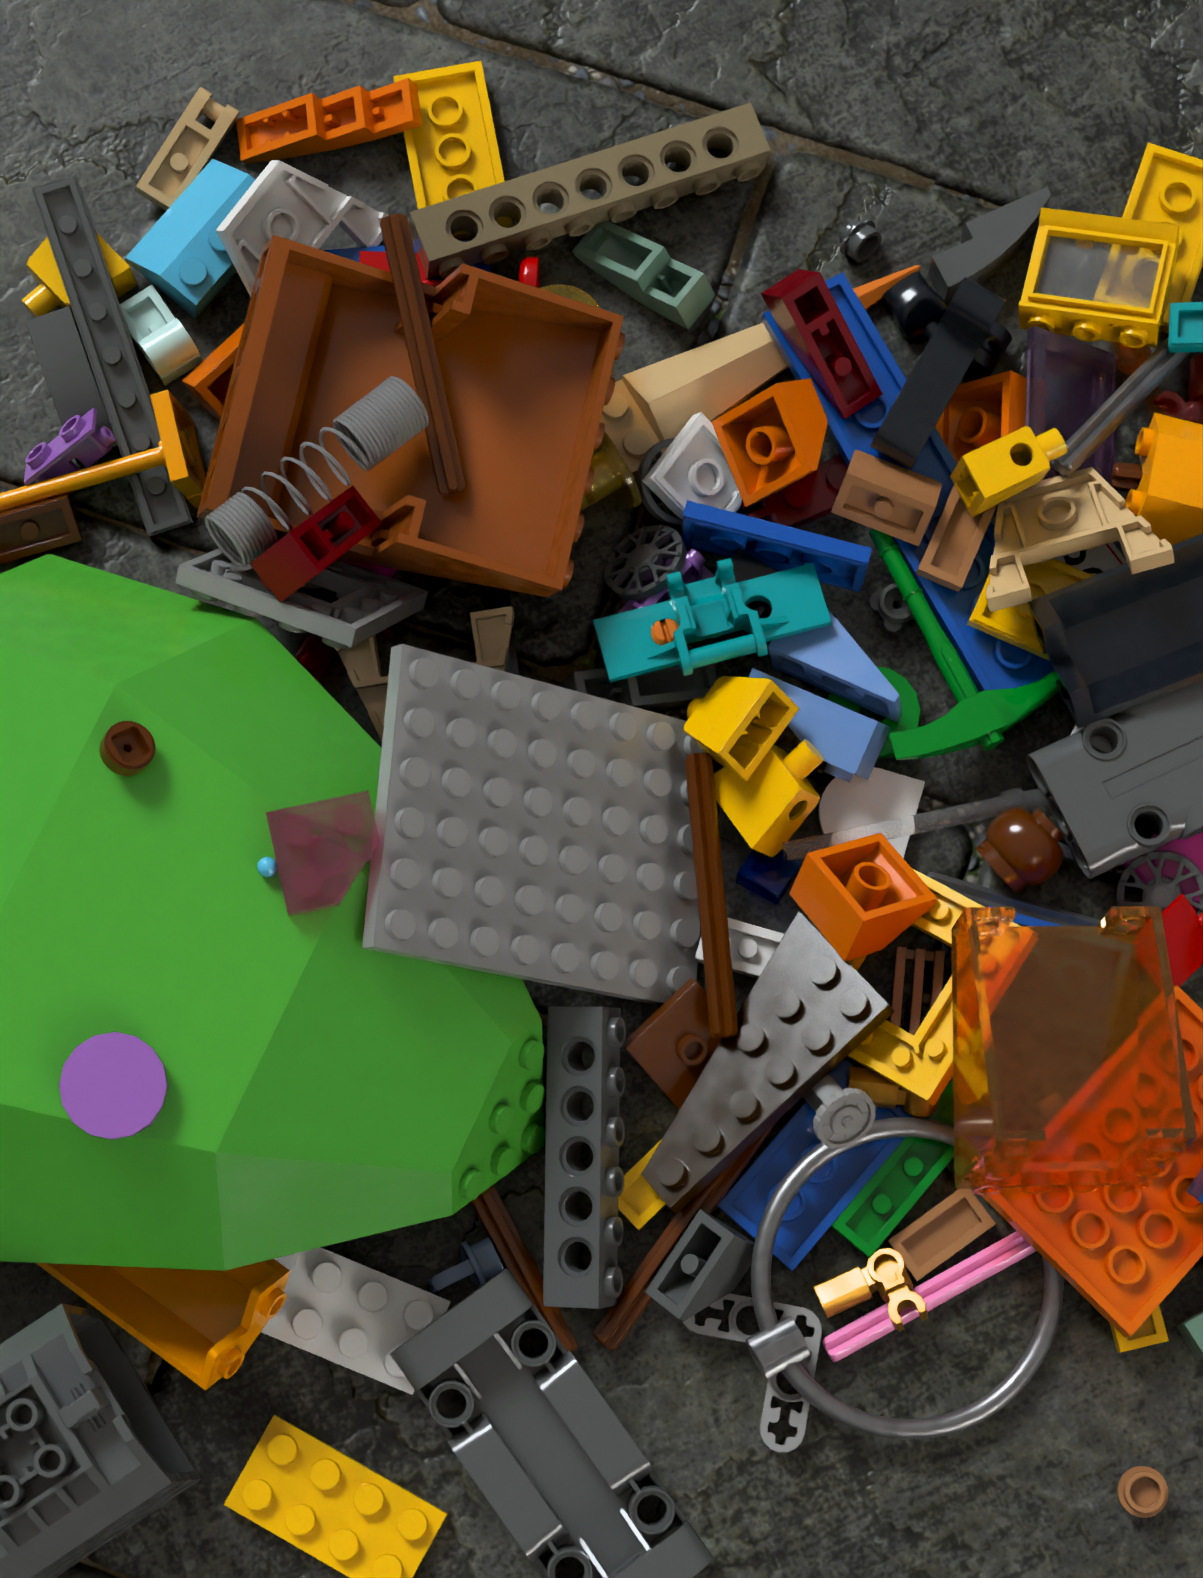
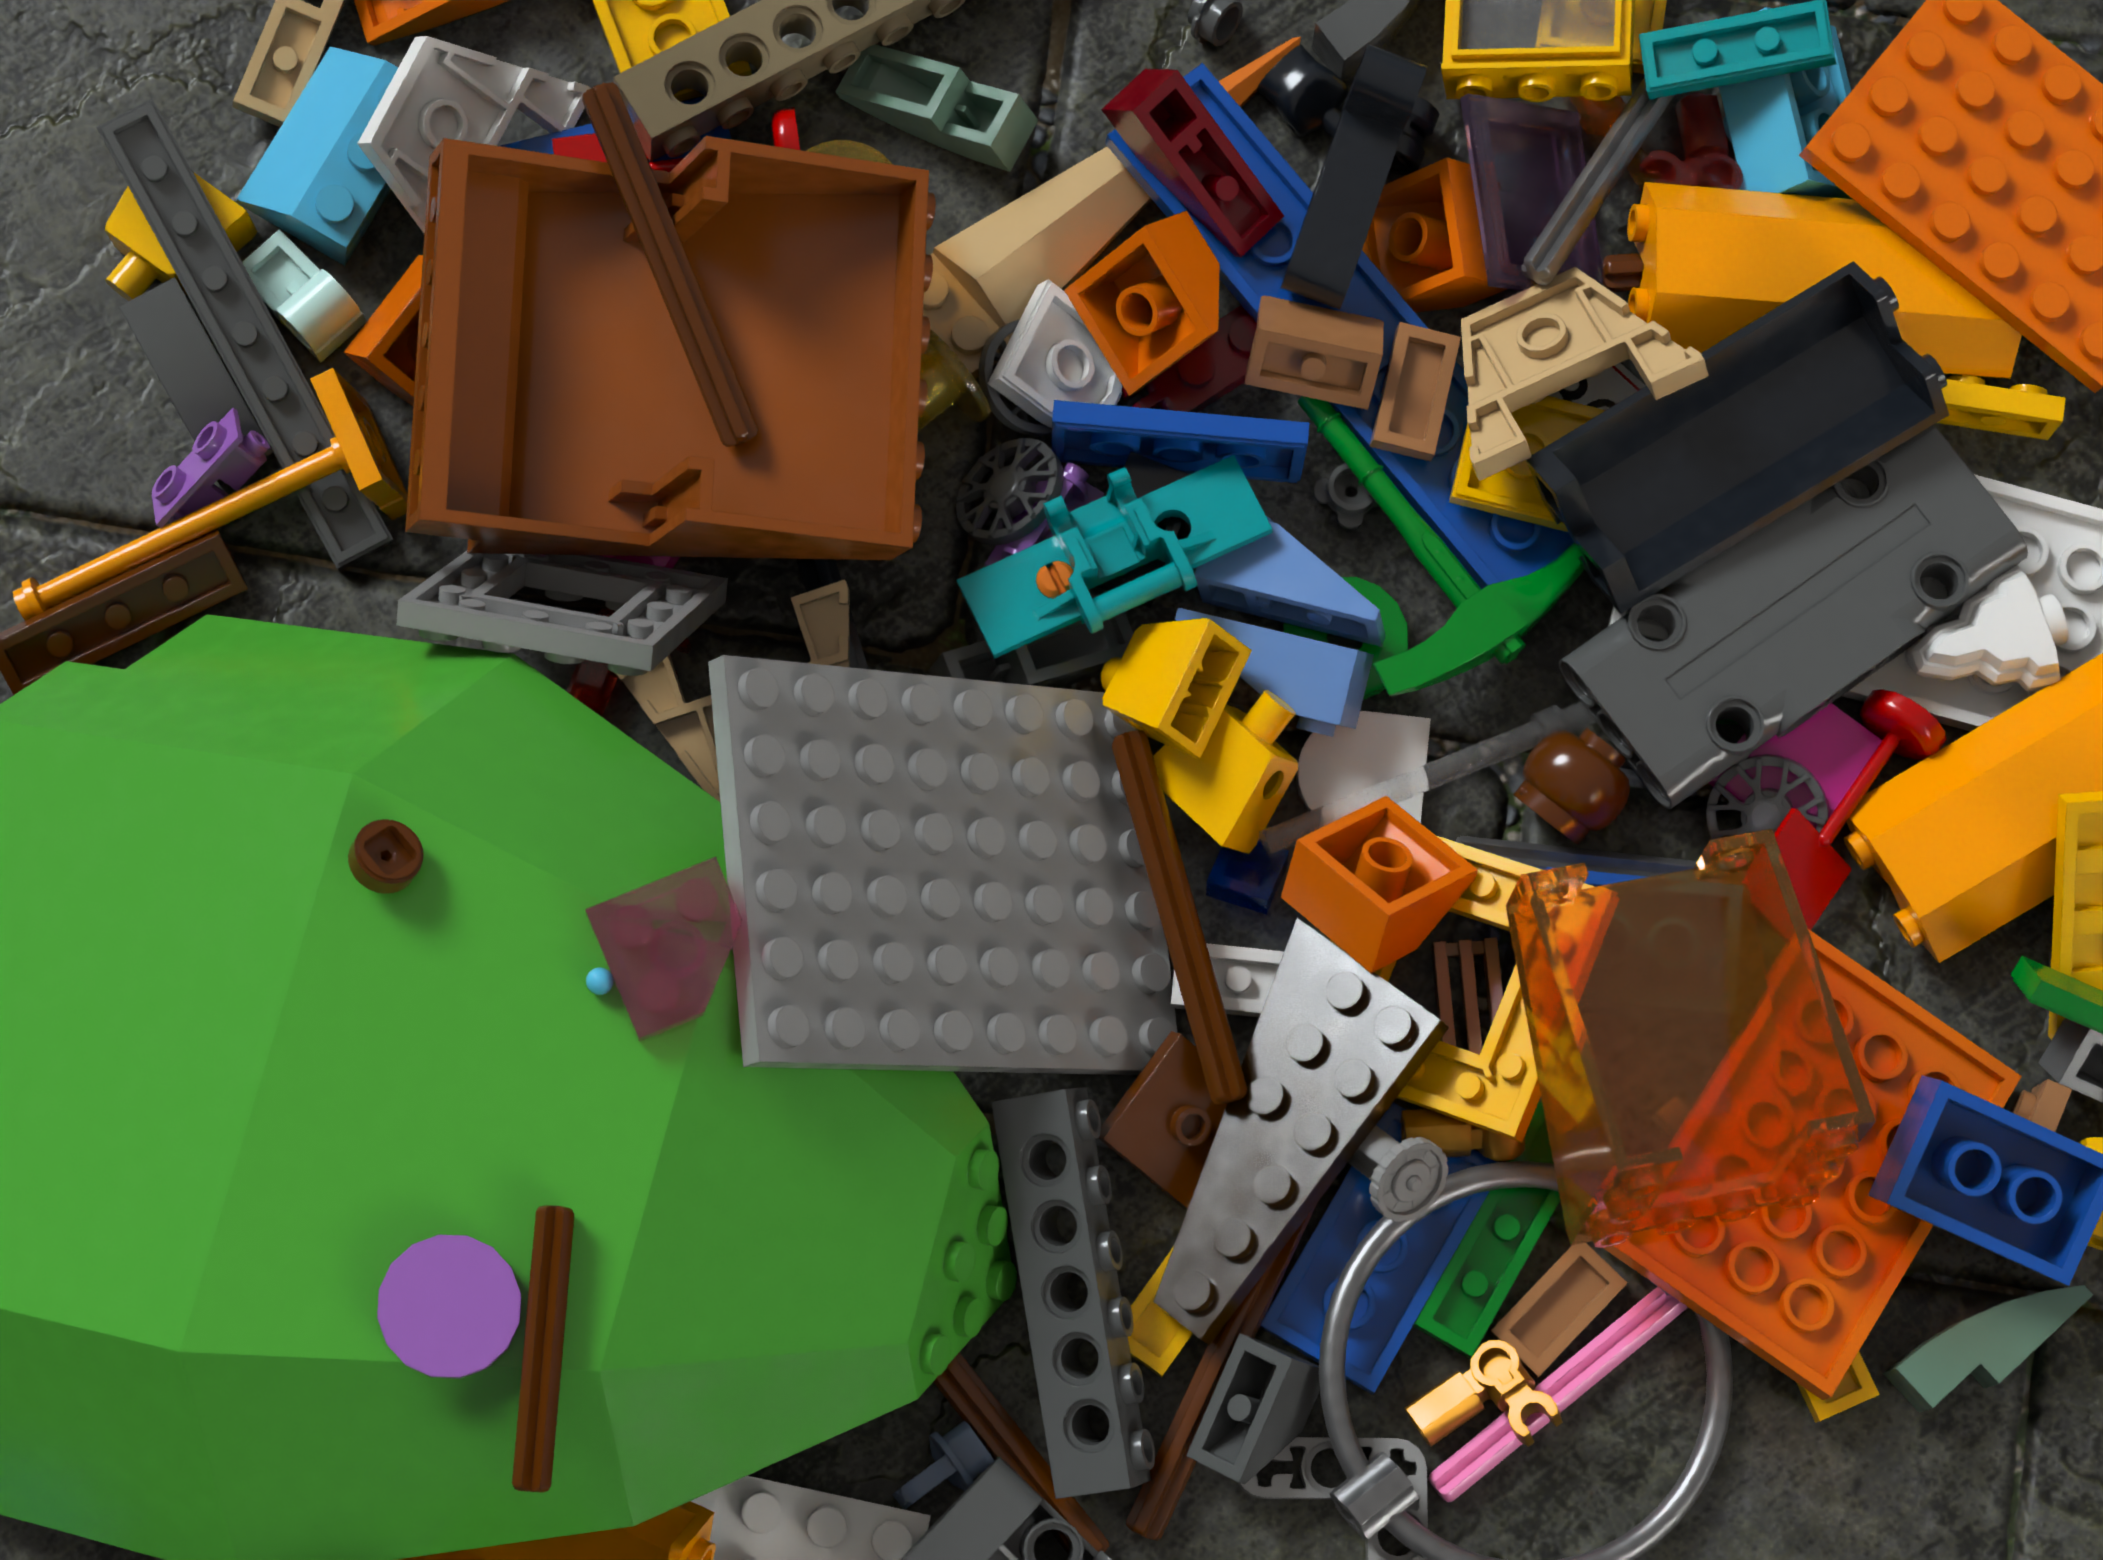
camera: 15 degrees left, 0 degrees up
(176, 1129) = (543, 1349): none -> reddish brown axle
(315, 543) = (576, 542): dark red slope -> none
(367, 433) = (617, 384): light grey piece -> none
(991, 476) = (1448, 297): yellow torso -> none

